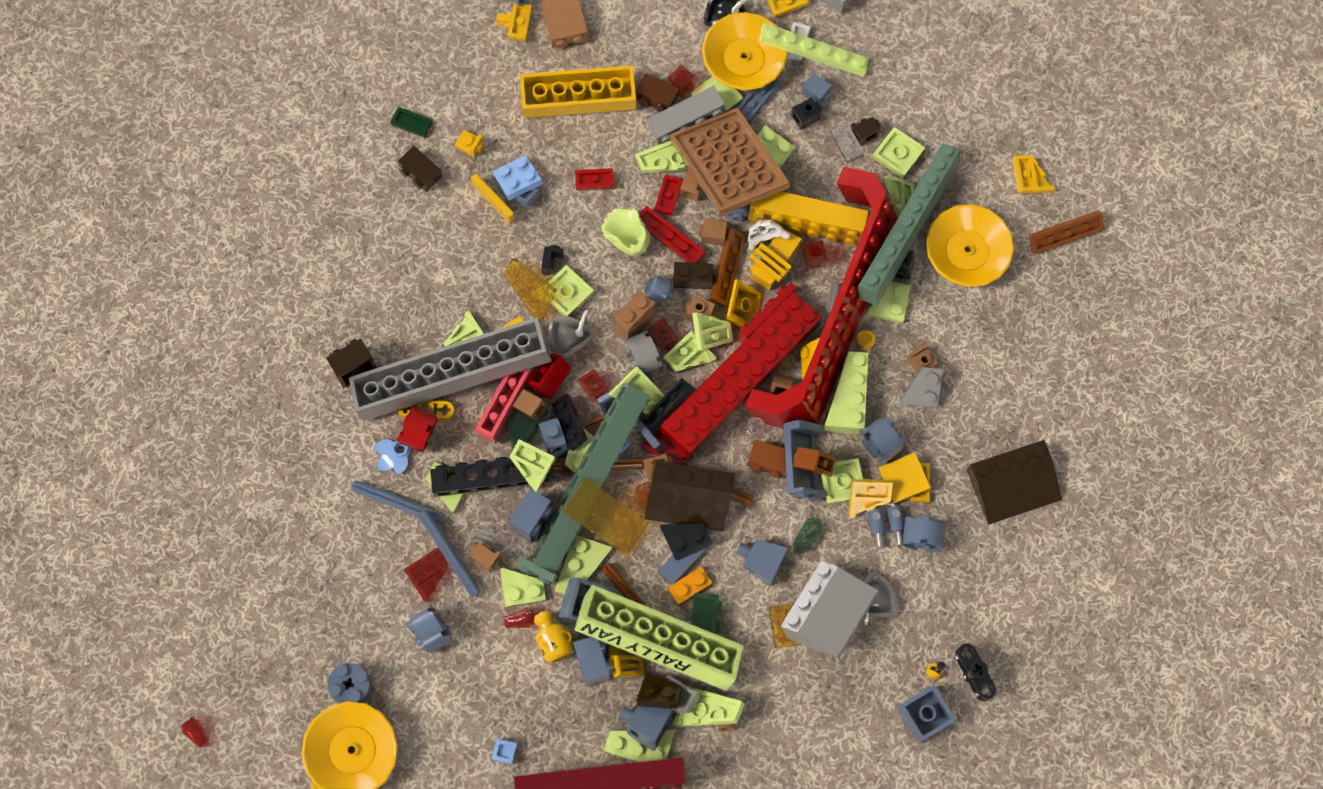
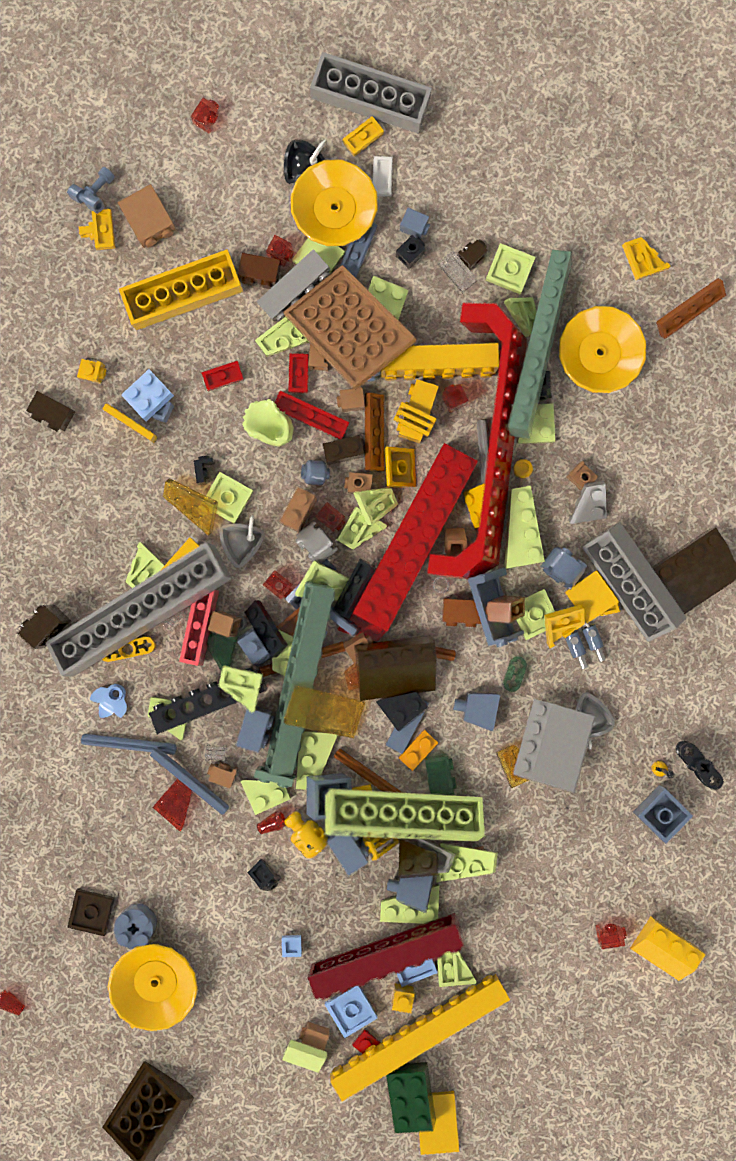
camera: 15 degrees left, 15 degrees up
(307, 662) = (90, 912): none -> dark brown tile
(411, 122) = (28, 364): dark green tile -> none
(417, 429) = (125, 674): red brick -> none
(430, 630) = (192, 858): sand blue brick -> none
(497, 671) = (264, 876): none -> black bracket
(548, 376) = (234, 591): red brick -> none
(765, 230) = (402, 387): white piece -> none
(770, 306) = (426, 463): red plate -> none
(813, 49) = (401, 182): yellowish green plate -> none
(923, 533) = (623, 647): sand blue brick -> none
(949, 472) = (634, 582): none -> light grey brick

